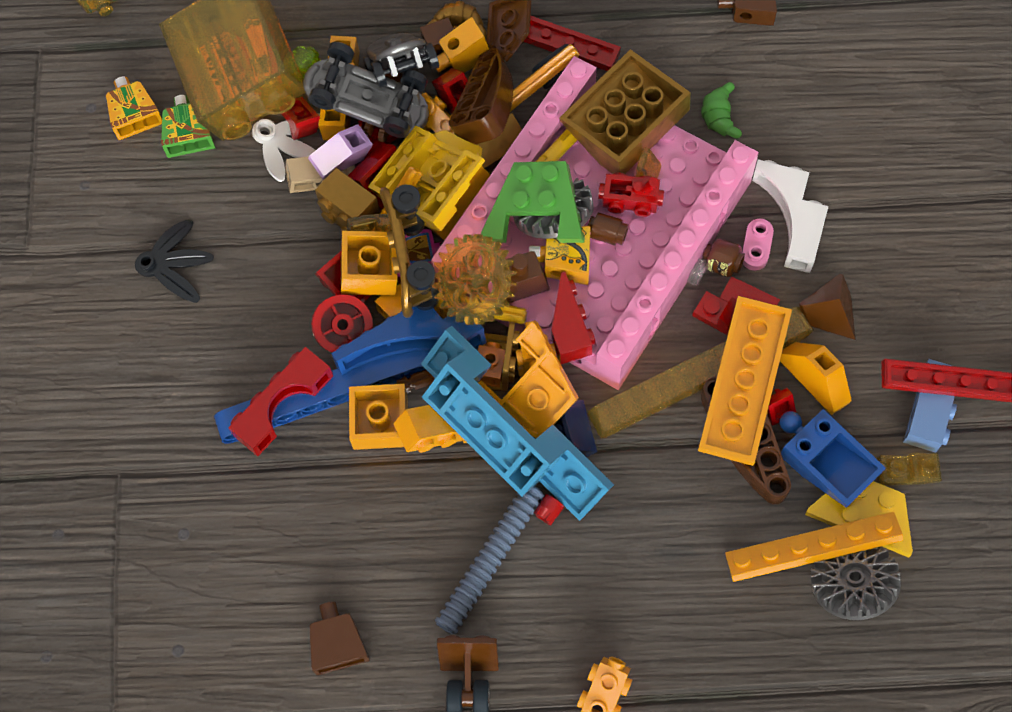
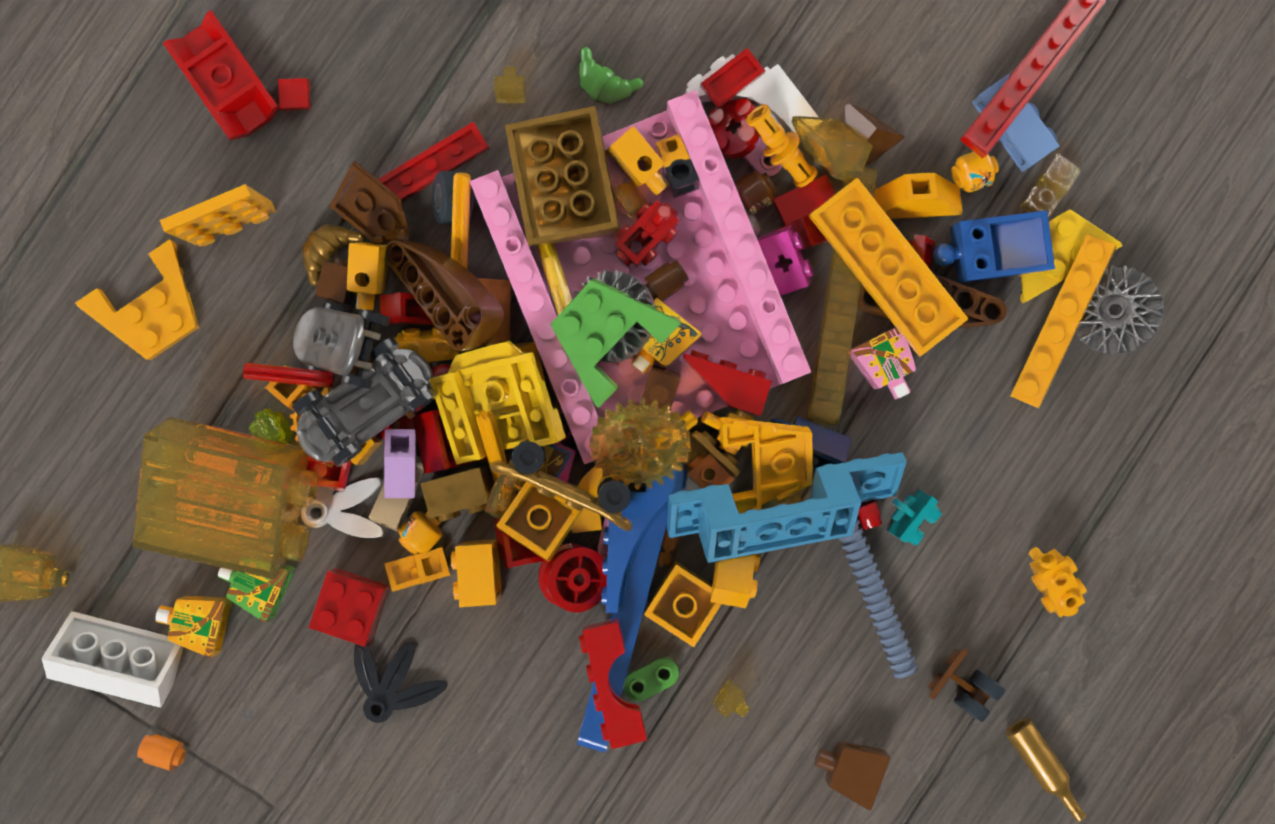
camera: 60 degrees left, 20 degrees up
(19, 145) = (161, 752): none -> orange brick
(67, 74) = (113, 659): none -> white slope
(211, 194) = (349, 606): none -> red brick
(270, 222) = (417, 569): none -> light orange slope
(297, 256) = (477, 573): none -> light orange brick
(299, 205) = (419, 532): none -> light orange head
(301, 438) = (650, 678): none -> bright green plate
(327, 507) = (730, 700): none -> clear yellow tile
(349, 38) = (288, 375): none -> red axle
(586, 545) = (911, 514): none -> teal hips
(663, 53) = (510, 87): none -> clear yellow tile
(675, 437) = (885, 362): none -> torso
(677, 149) = (628, 151): none -> light orange torso
(690, 308) = (786, 243): none -> dark pink brick
(694, 181) = (677, 166): none -> leg
(759, 212) = (724, 118): none -> red plate
(772, 248) = (781, 146): none -> light orange piece
(791, 182) = (732, 78): none -> red tile
(802, 280) = (833, 145): none -> clear yellow slope
(871, 400) = (974, 172): none -> light orange head

